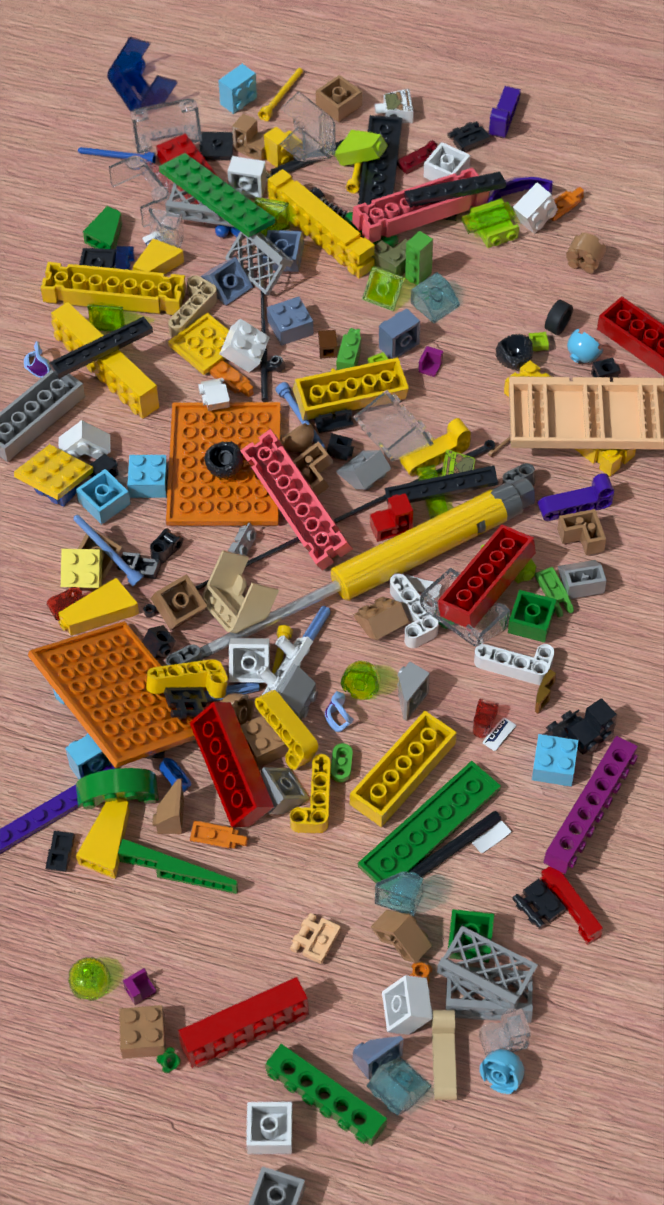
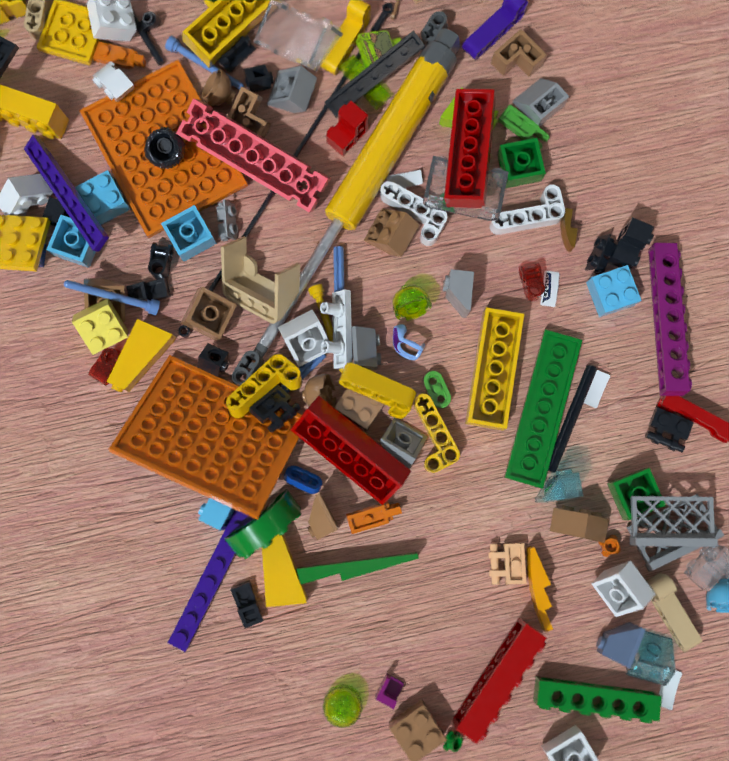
camera: 30 degrees left, 25 degrees up
(120, 455) = (66, 193): none -> dark purple plate
(202, 534) = (188, 233): none -> medium azure brick
(332, 967) = (537, 582): none -> light orange slope
(402, 1128) = (669, 691): none -> white sticker

